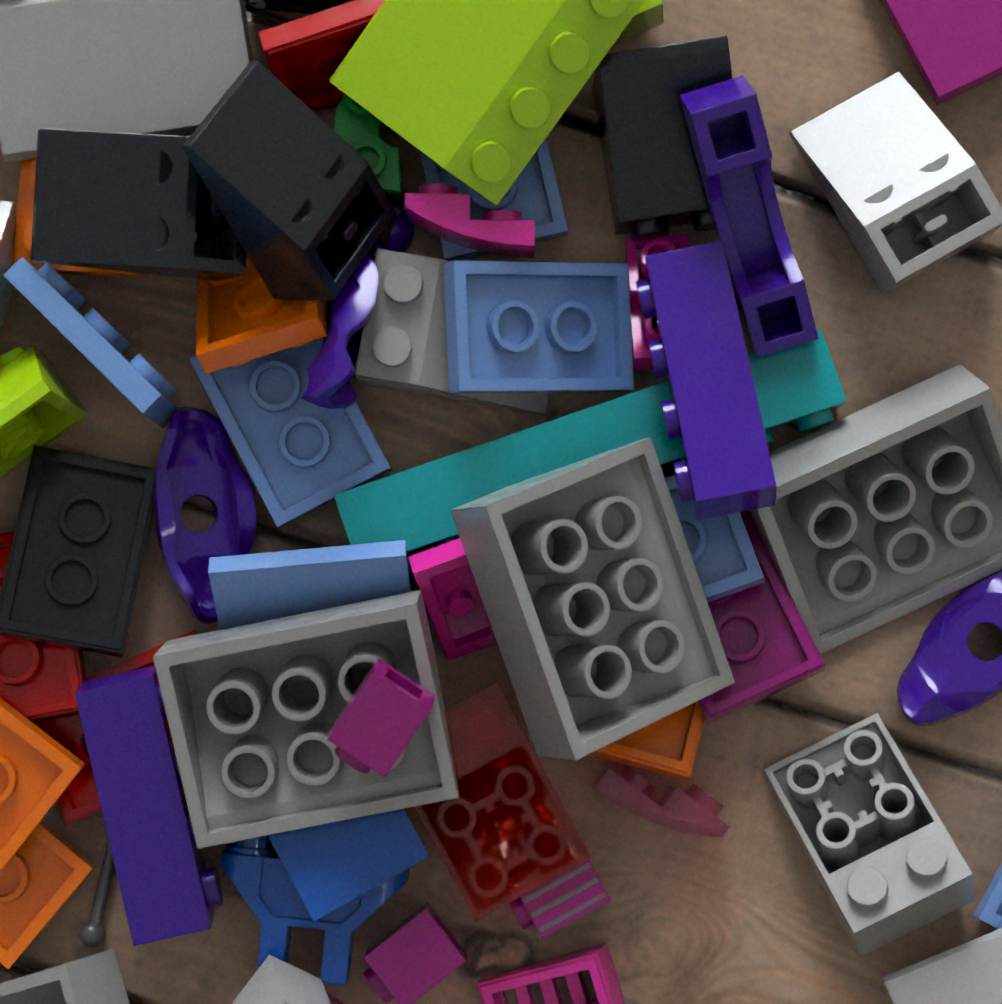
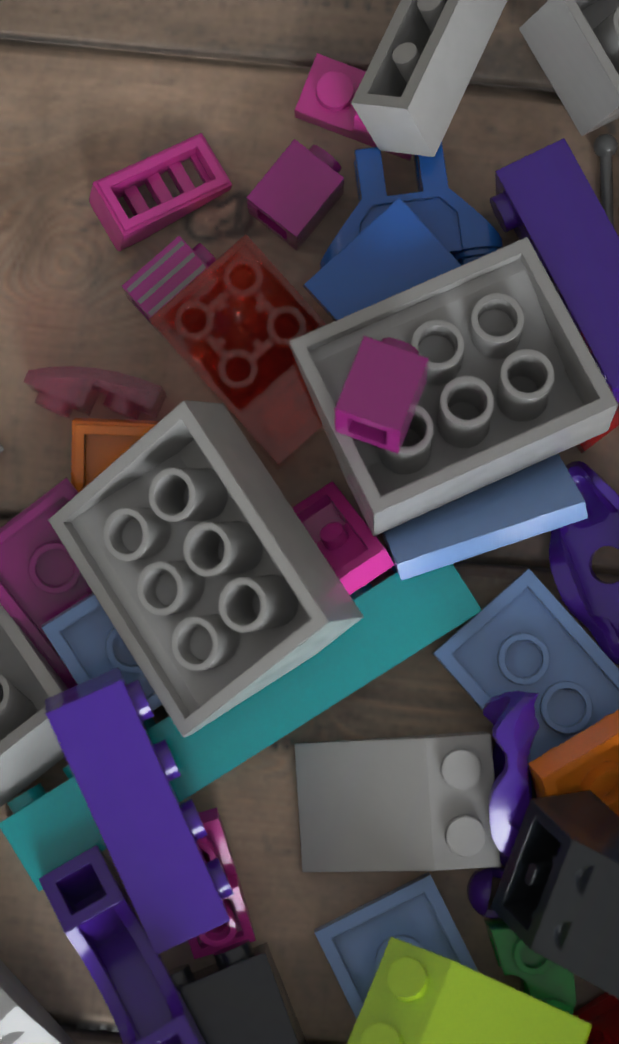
camera: 165 degrees right, 0 degrees up
(448, 216) = (435, 916): dark pink slope -> none
(538, 327) = (321, 826): medium blue plate -> none

